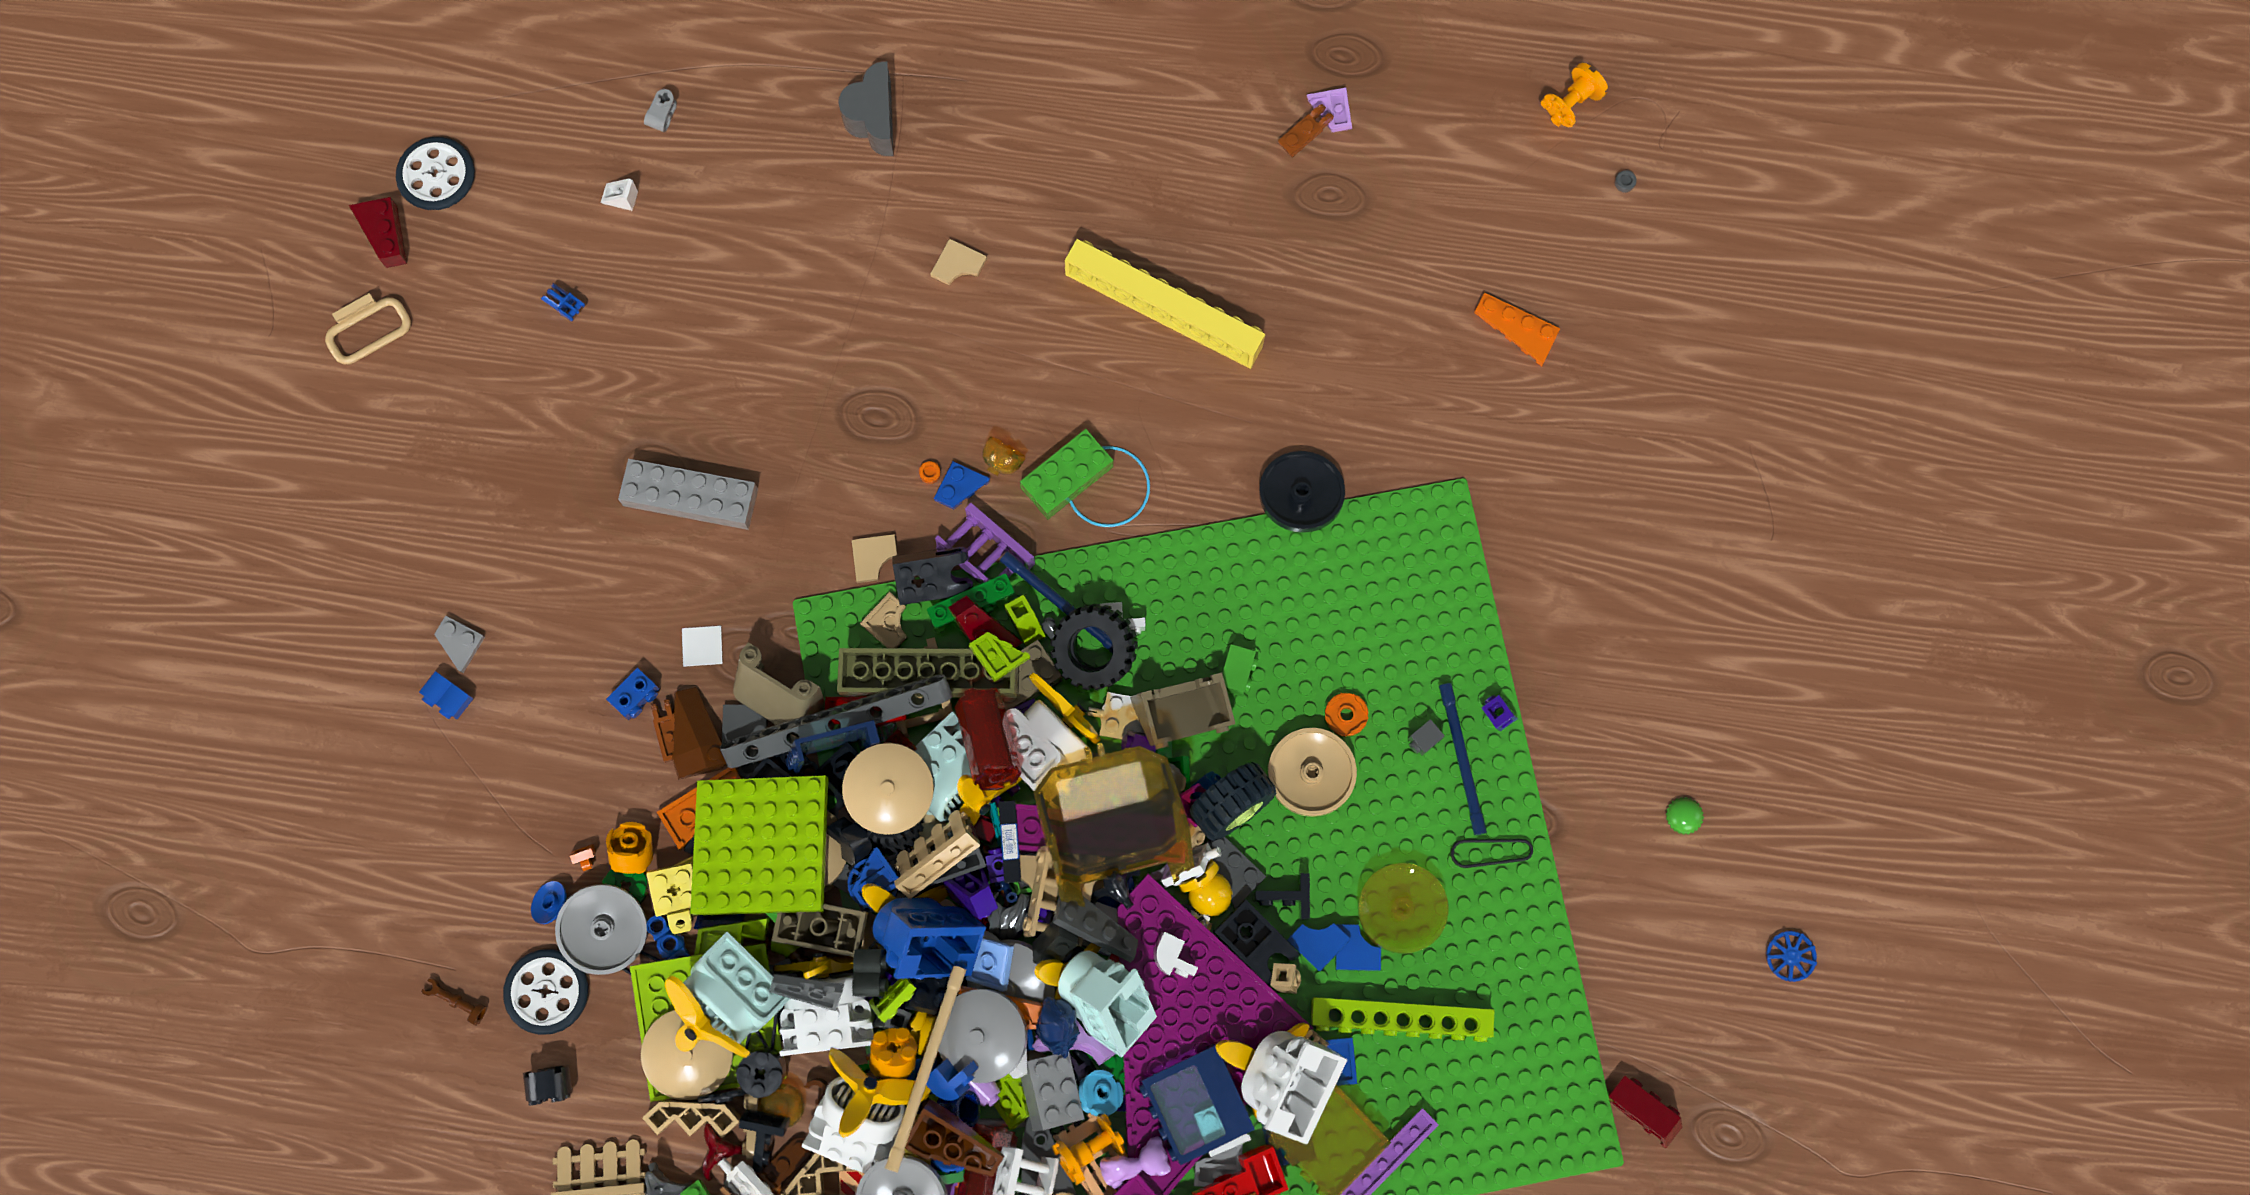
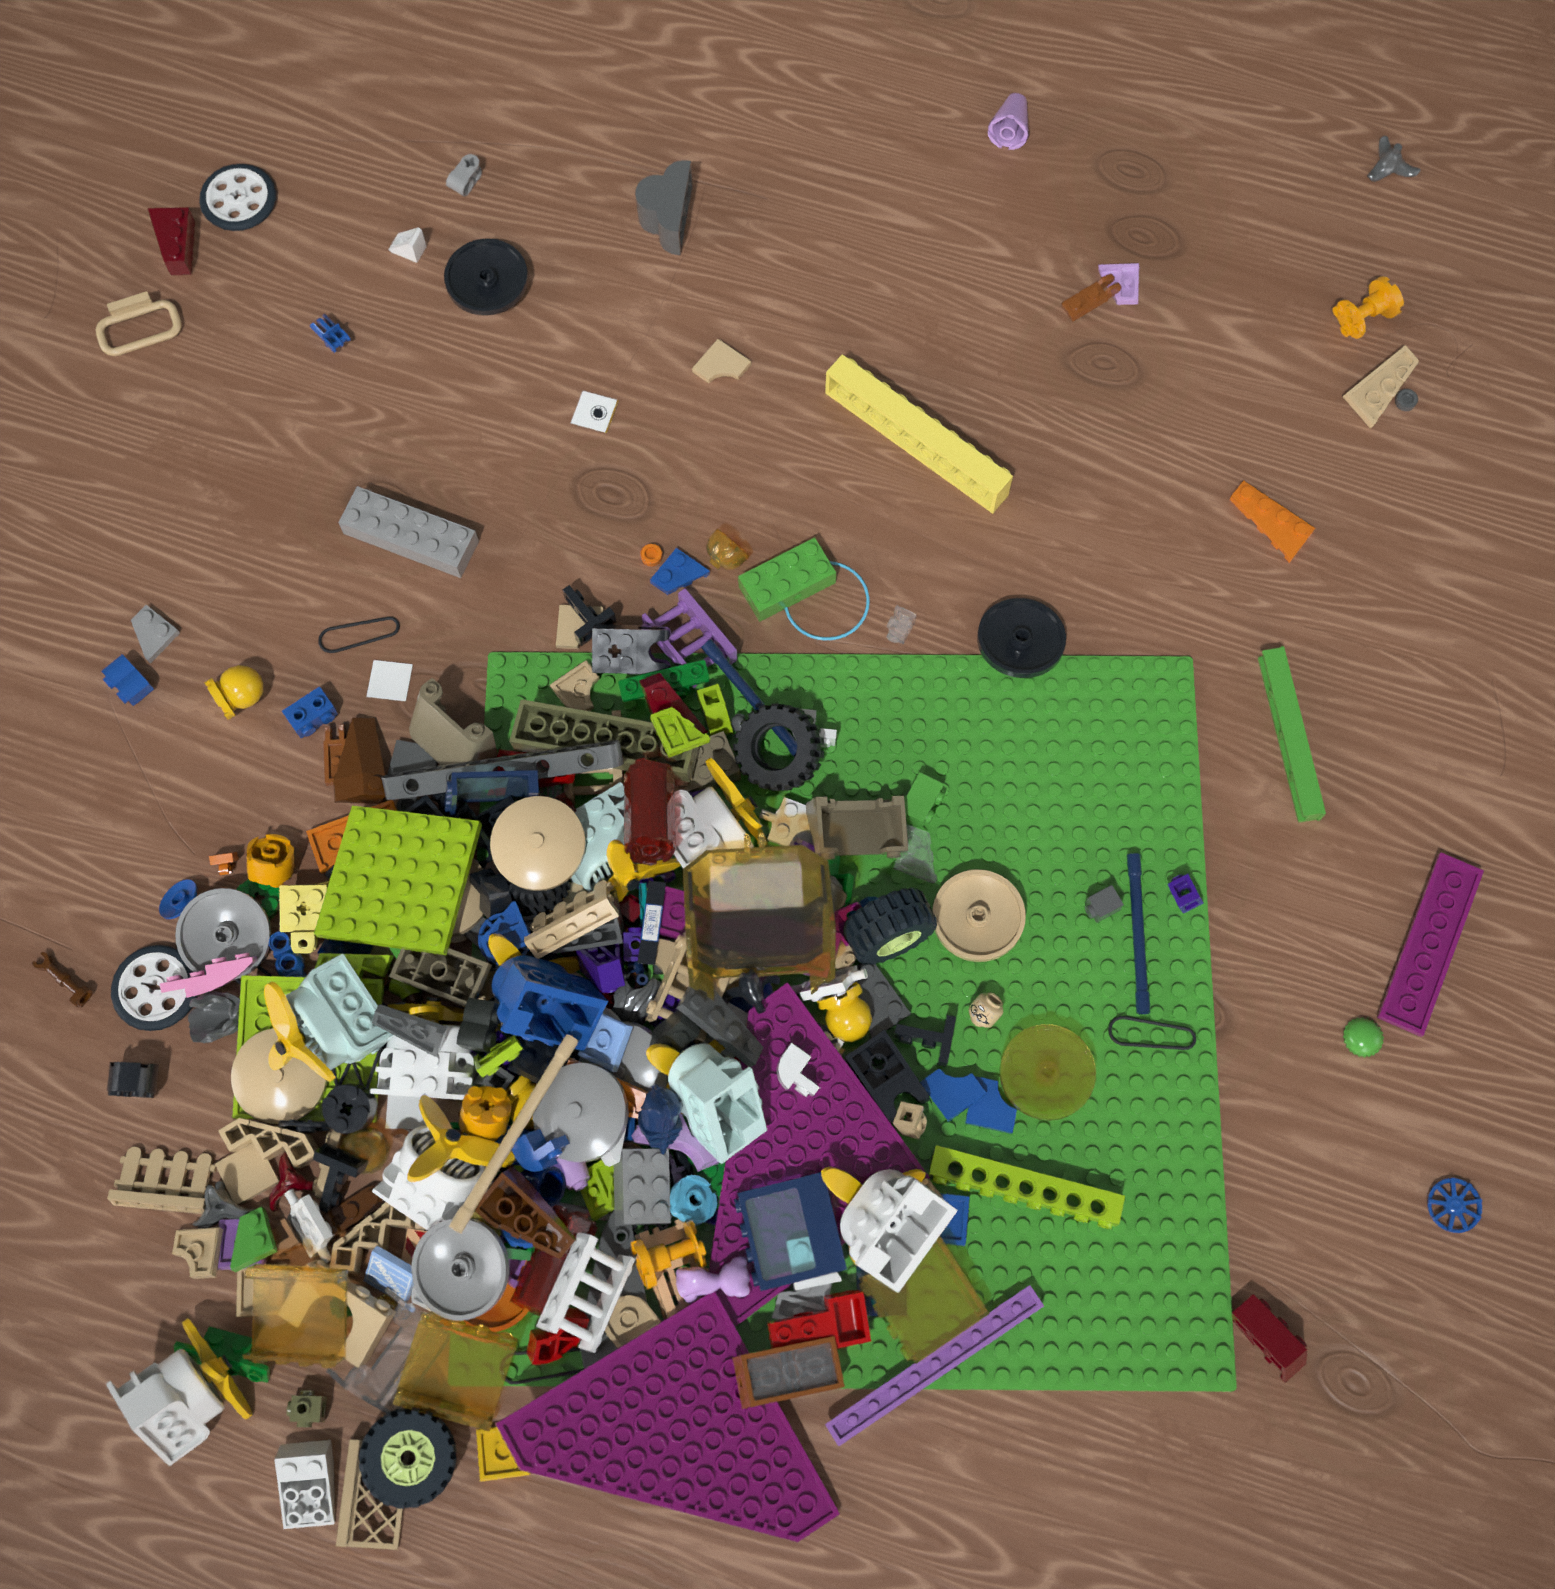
camera: 15 degrees right, 5 degrees down
(557, 685) = (237, 688): none -> yellow tile
(606, 969) = (218, 974): none -> bright pink slope
(610, 1009) = (213, 1017): none -> dark grey hair
(657, 595) = (356, 624): none -> black piece
(675, 1151) = (246, 1174): none -> tan tile
(706, 216) = (486, 277): none -> black dish
(813, 1065) = (403, 1112): none -> white sticker
(843, 335) = (594, 411): none -> white sticker
(882, 546) = (587, 615): none -> black bracket
(1184, 499) = (900, 625): none -> clear brick
(1247, 726) = (919, 857): none -> clear wing
(1335, 860) = (986, 1010): none -> tan head
(1346, 727) = (1022, 879): orange tile -> none
(1571, 538) = (1291, 735): none -> bright green tile
(1595, 177) = (1376, 390): none -> tan wing
(1732, 716) = (1430, 944): none -> magenta plate

